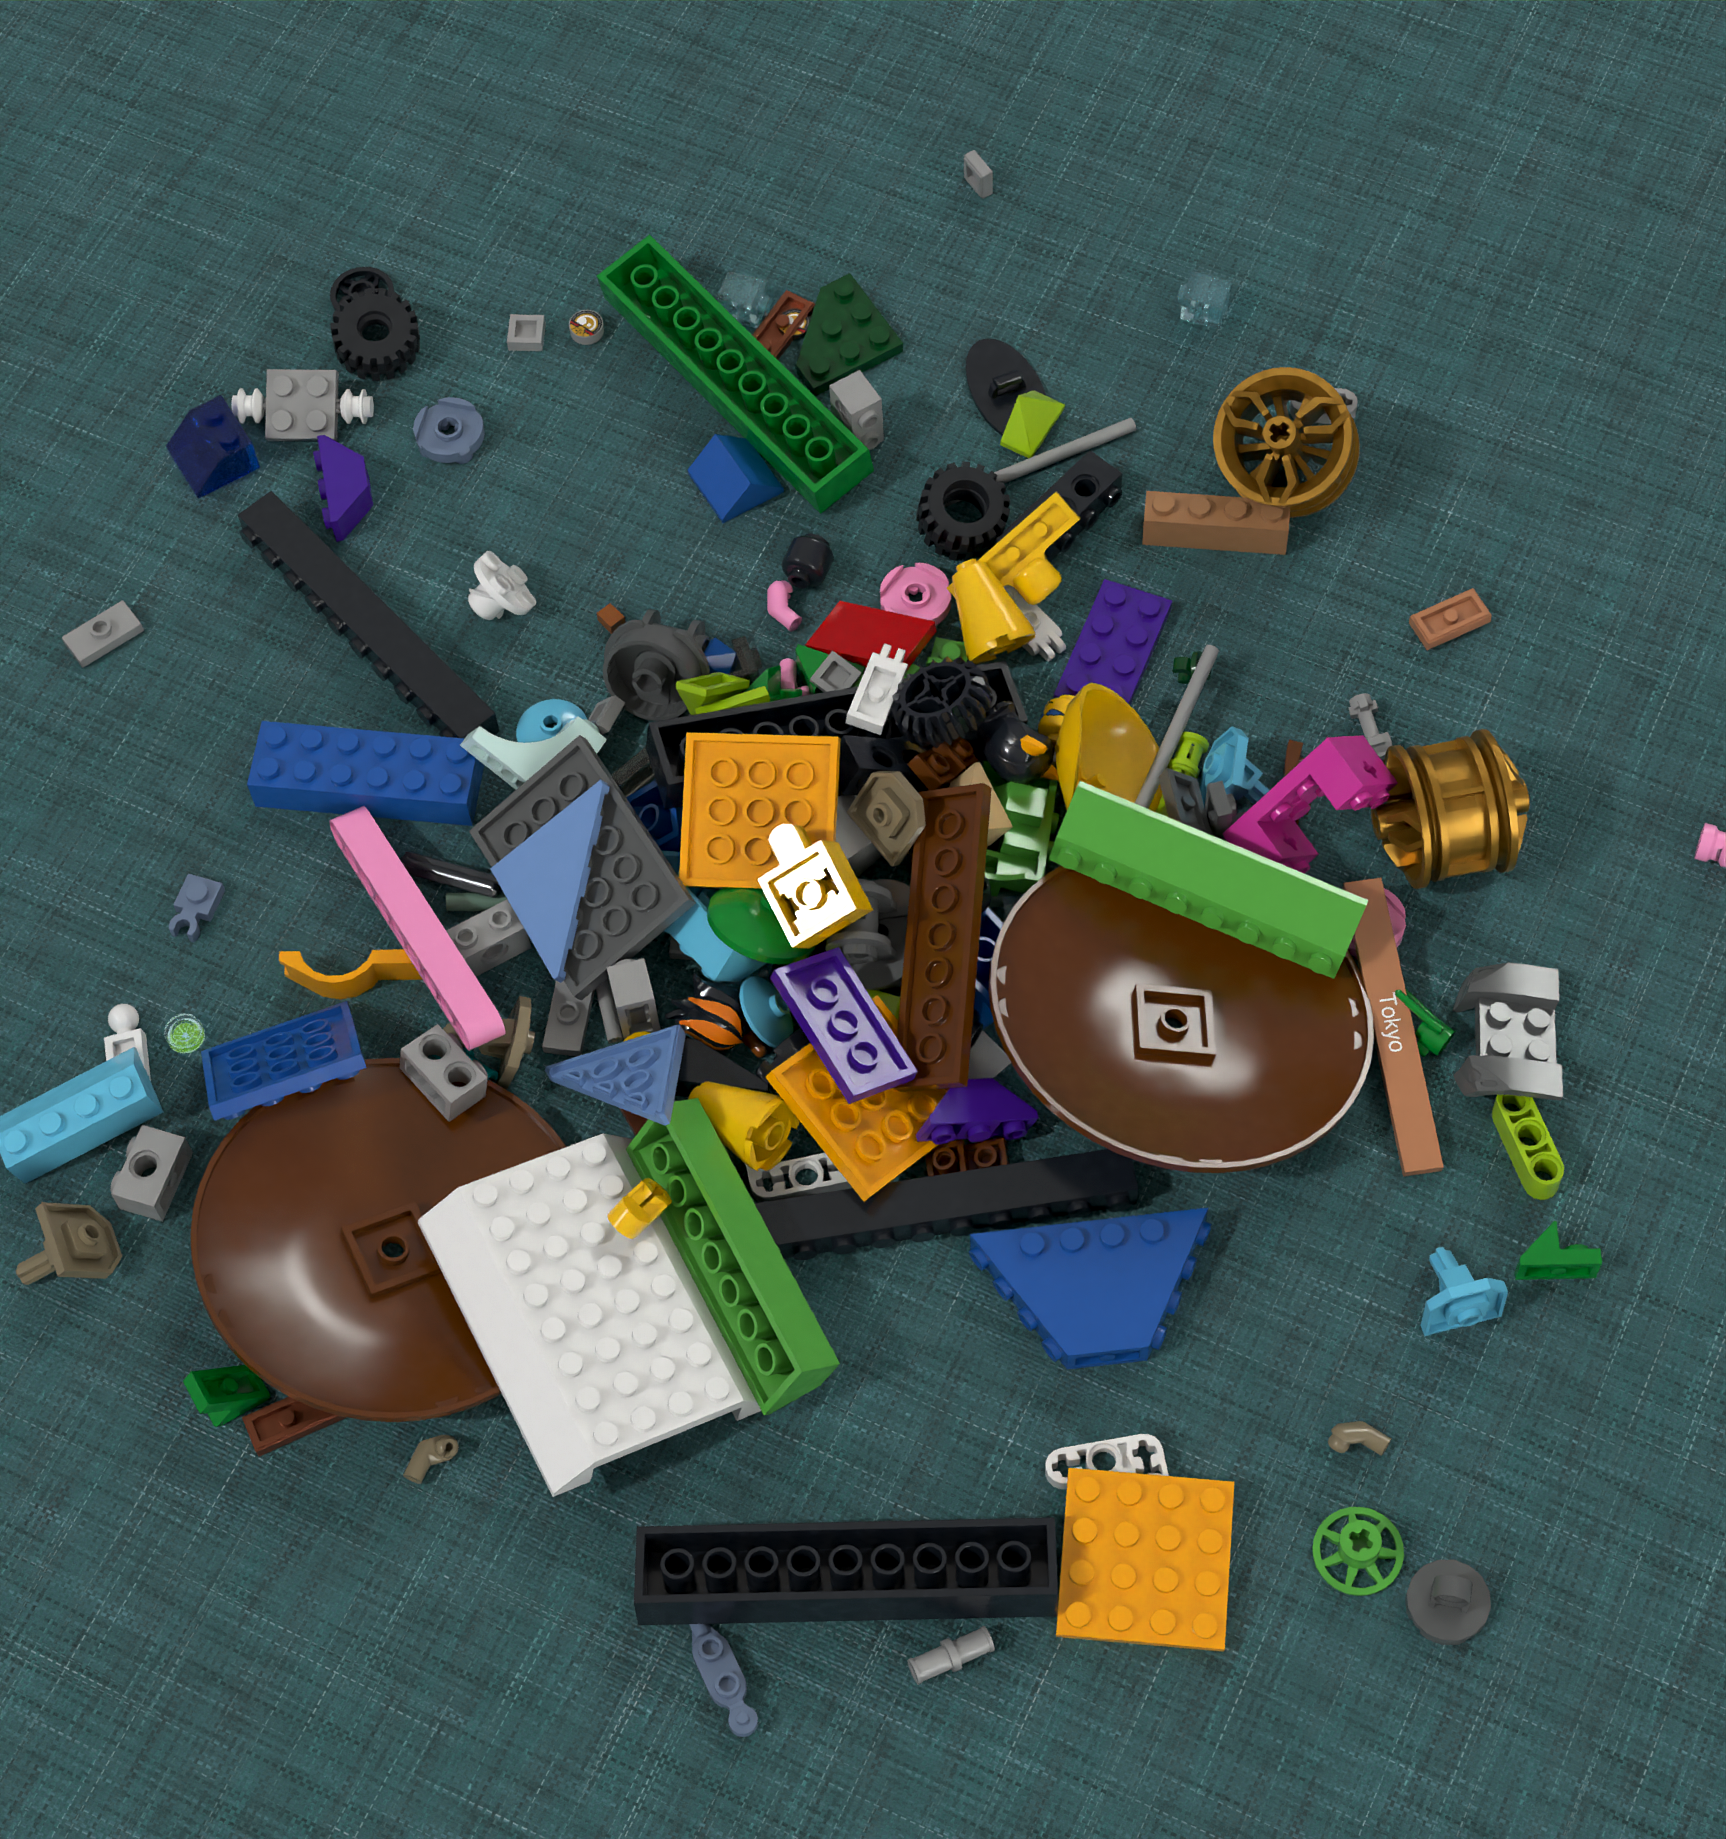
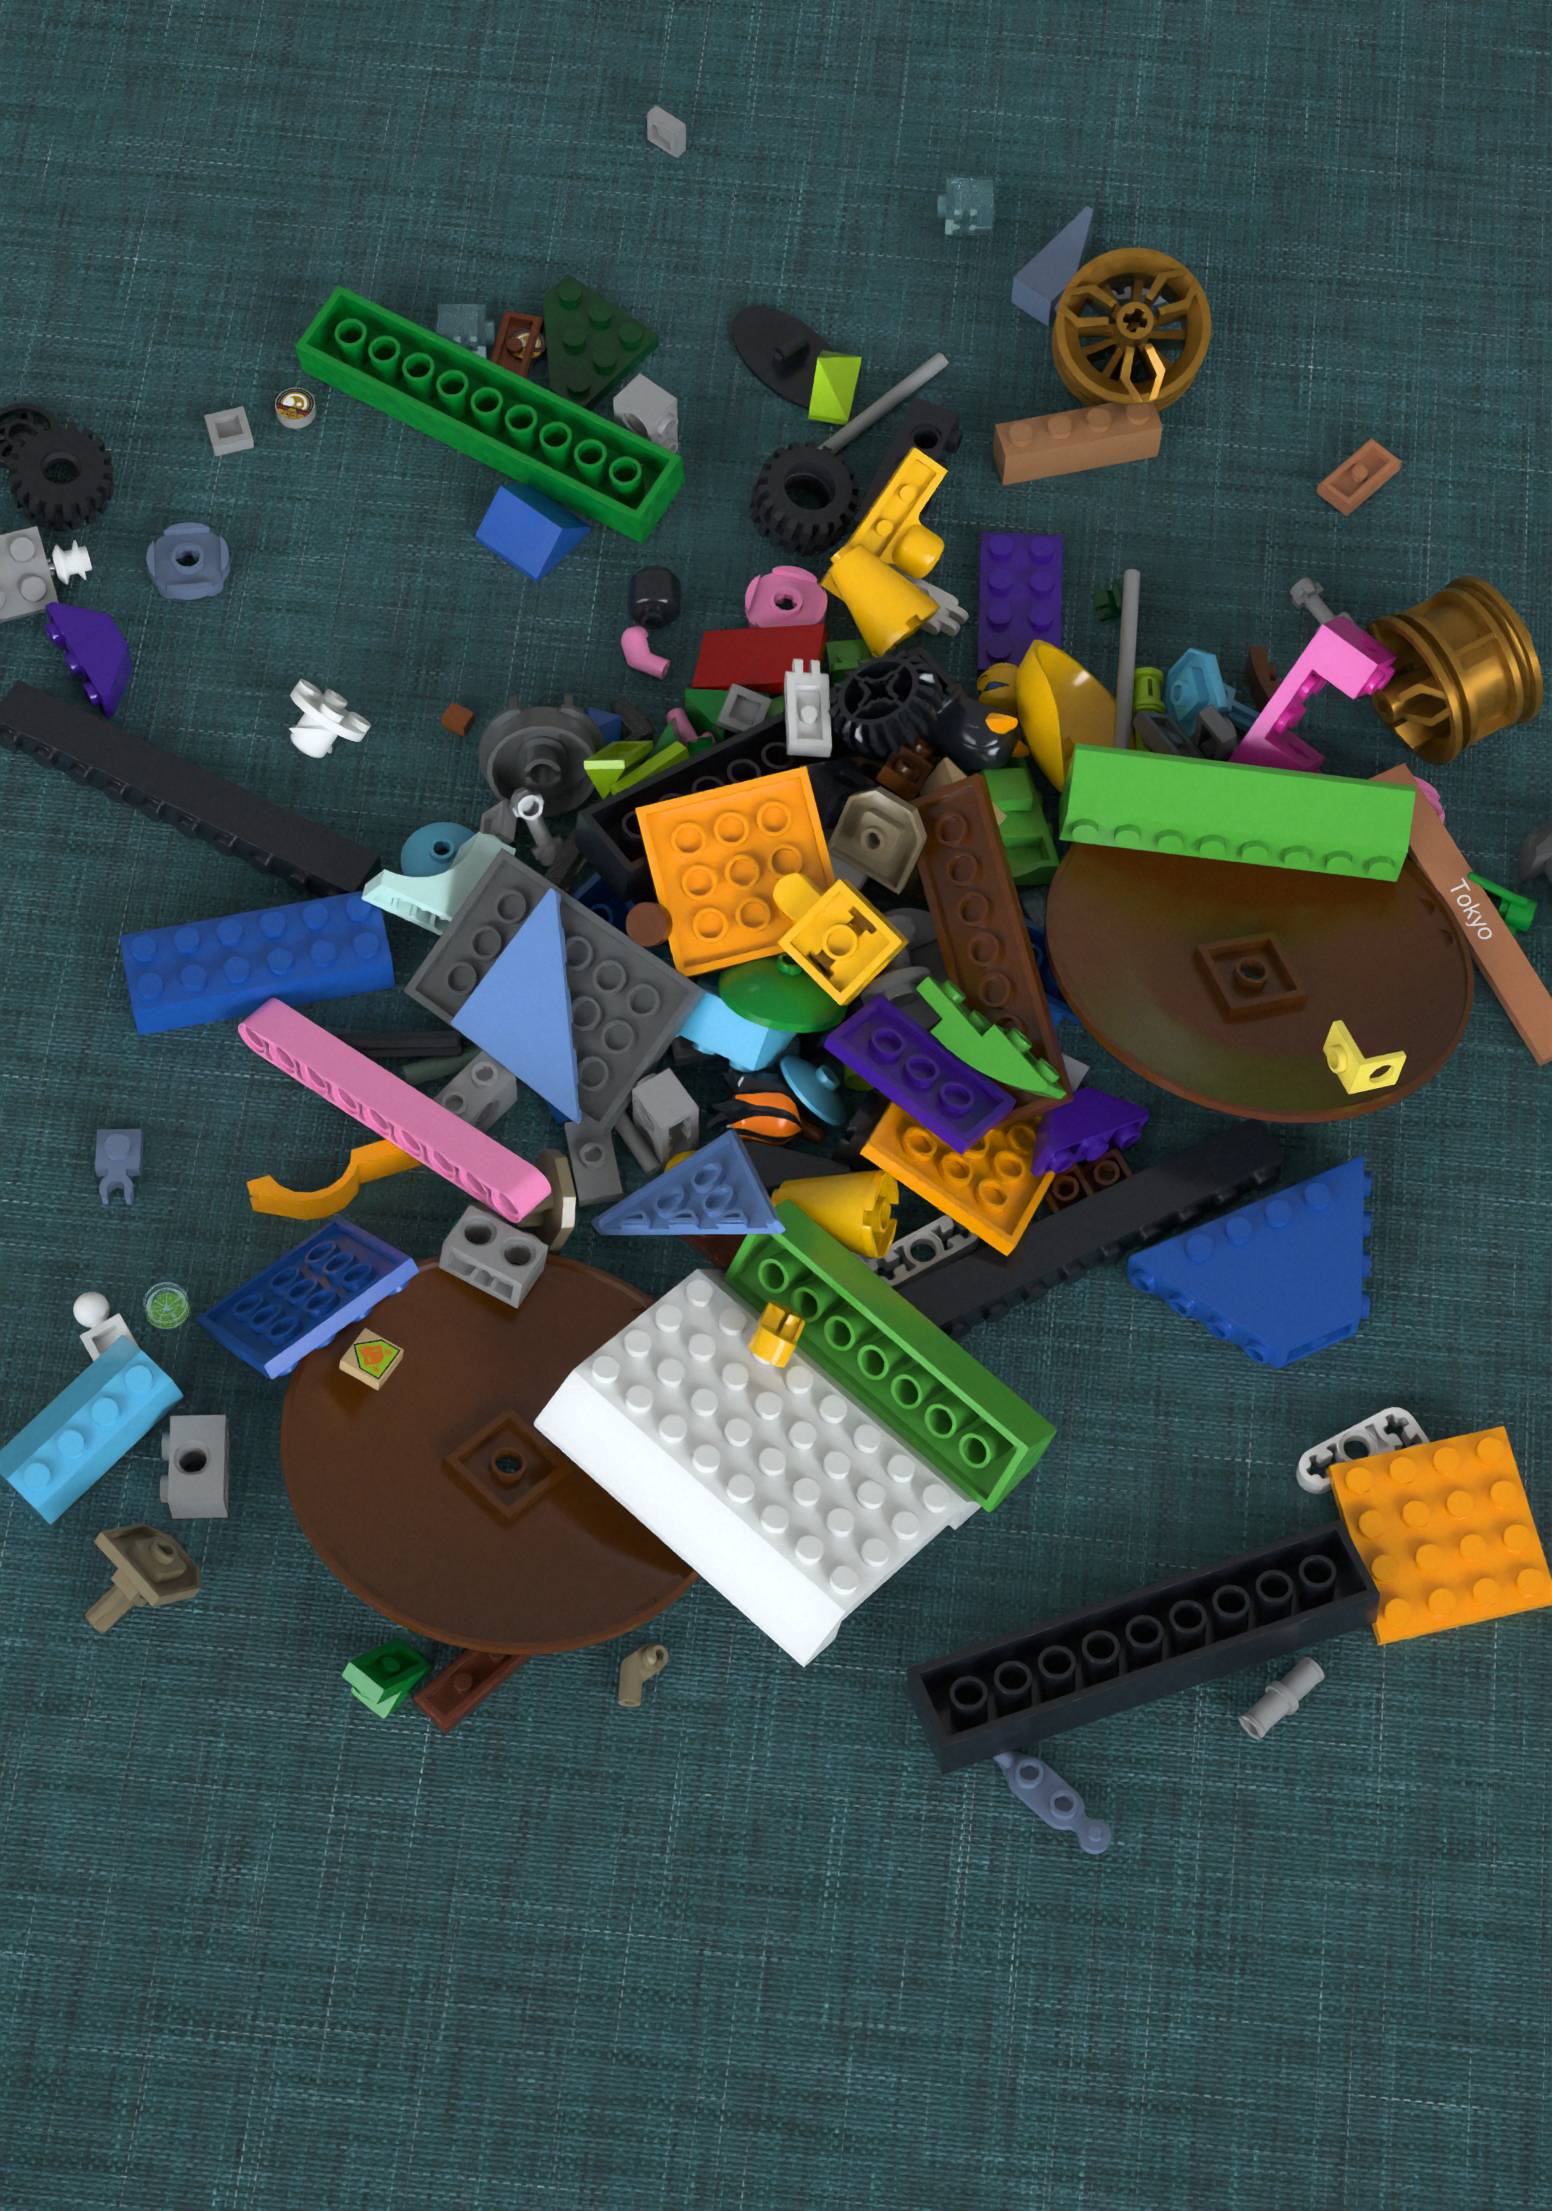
camera: 25 degrees left, 0 degrees up
(306, 1127) = (371, 1359): none -> tile
(626, 708) = (529, 807): none -> light grey bar
(667, 833) = (649, 924): none -> reddish brown tile
(905, 1019) = (988, 1047): none -> bright green slope
(1211, 1134) = (1351, 1067): none -> light yellow bracket
(1277, 353) = (1044, 279): none -> sand blue slope

